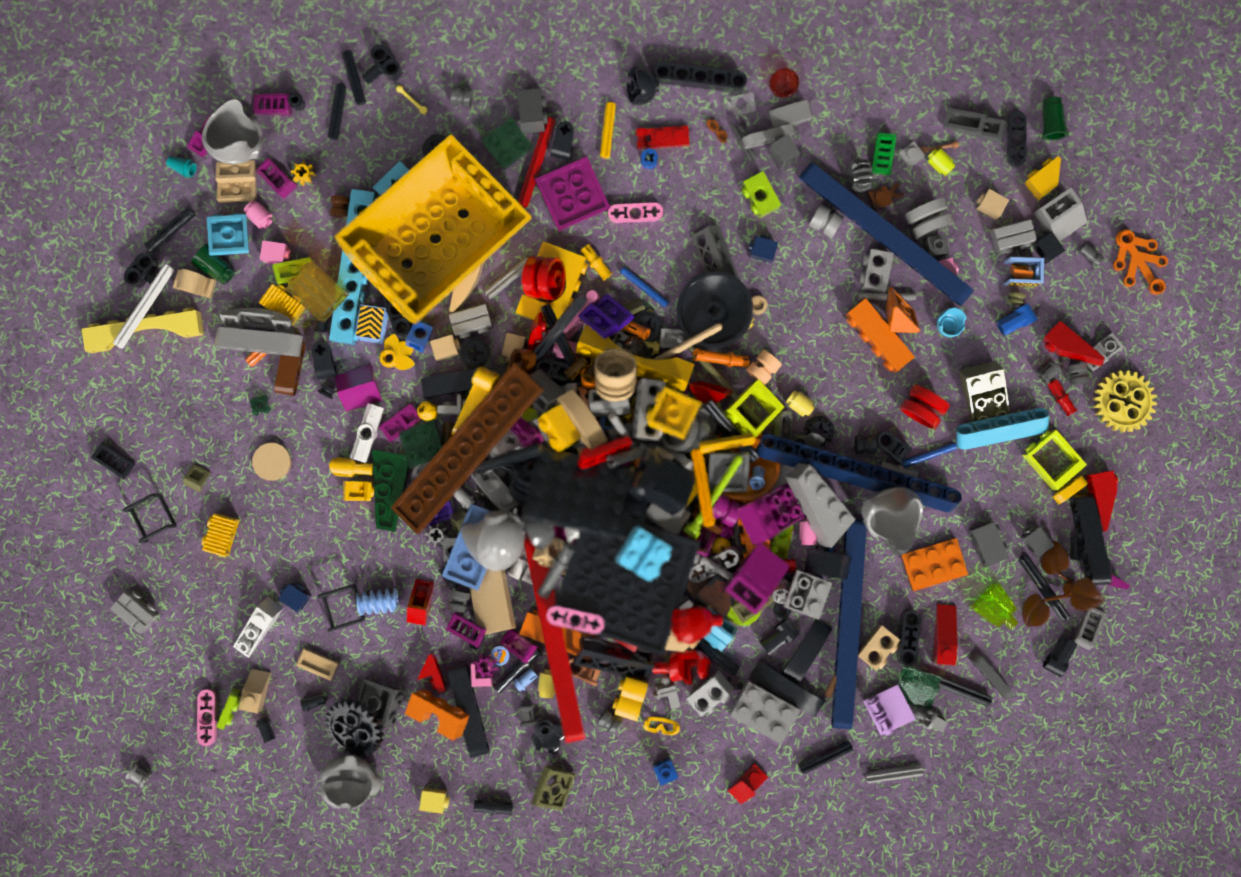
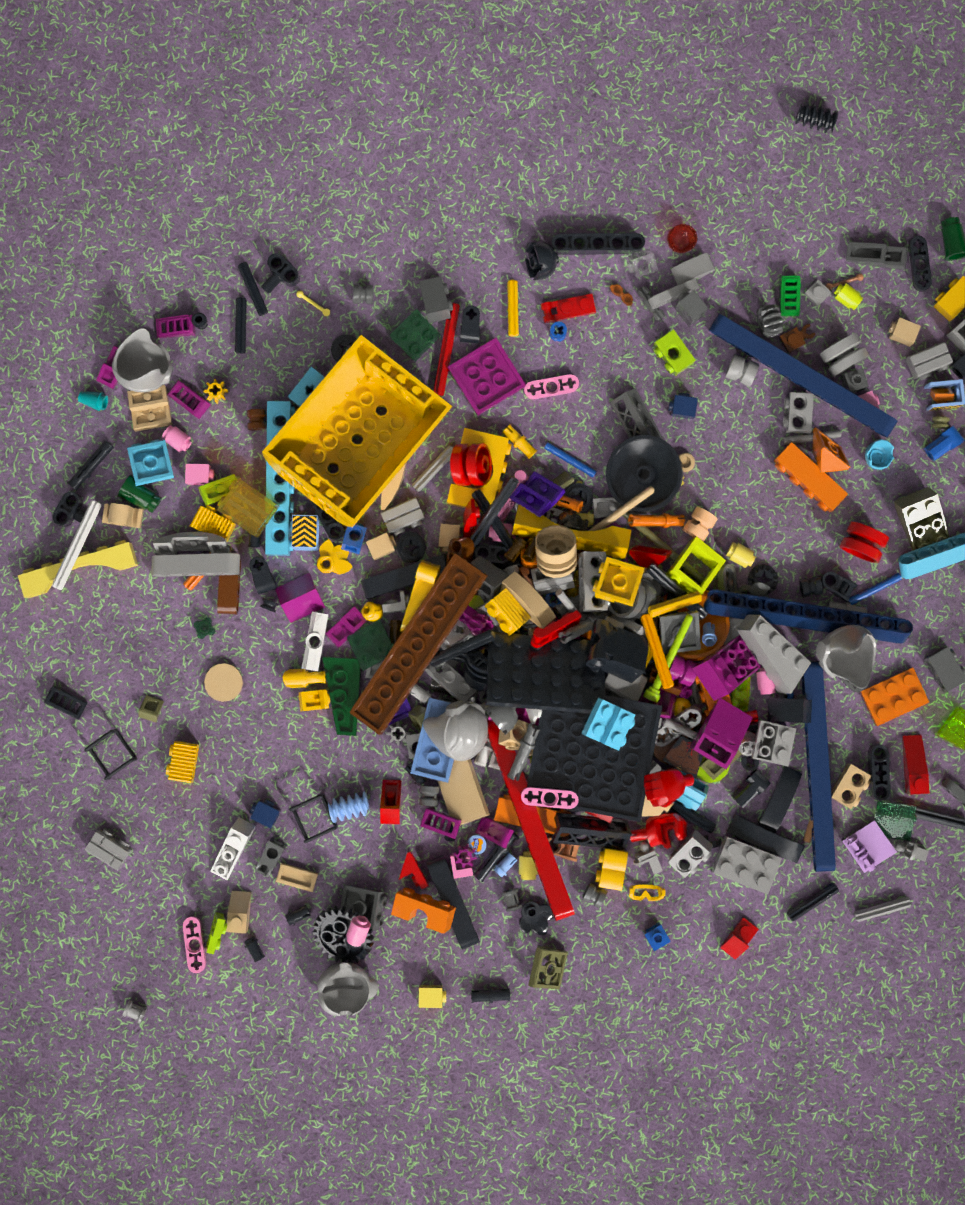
camera: 10 degrees left, 0 degrees up
(293, 640) = (270, 857): none -> dark grey leg
(367, 726) = (358, 930): none -> bright pink brick

